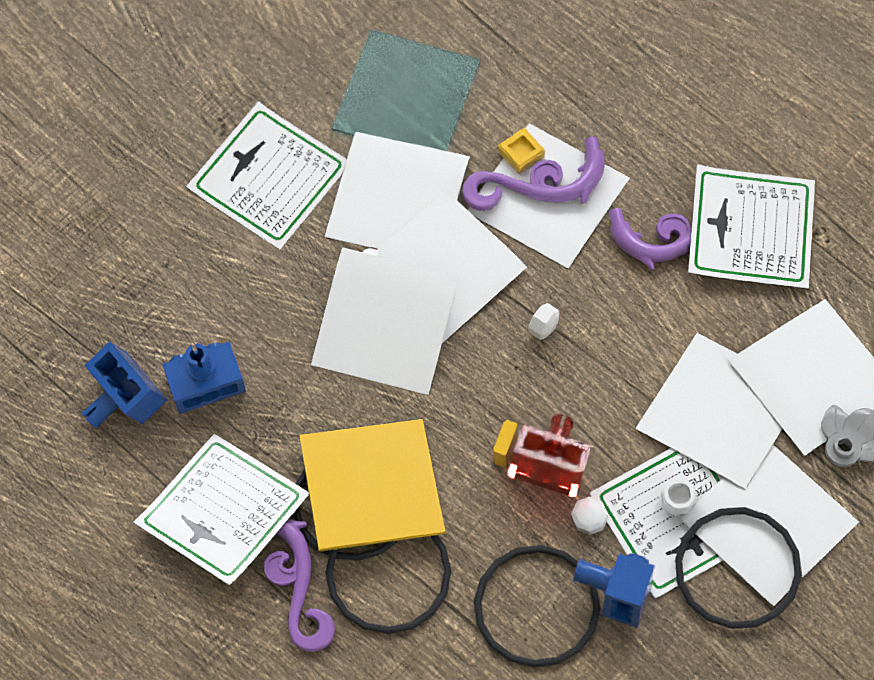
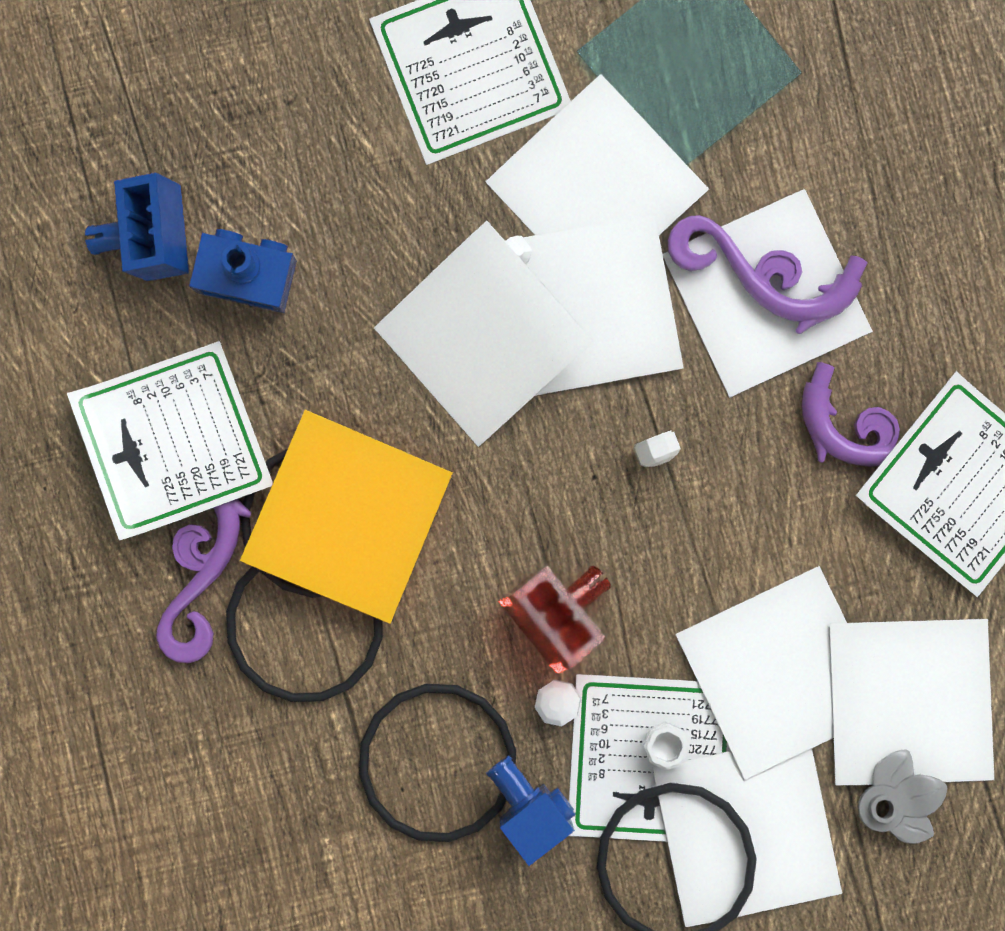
camera: 25 degrees right, 20 degrees up
(505, 443) = (520, 564): yellow tile -> none
(521, 150) = (771, 220): yellow tile -> none

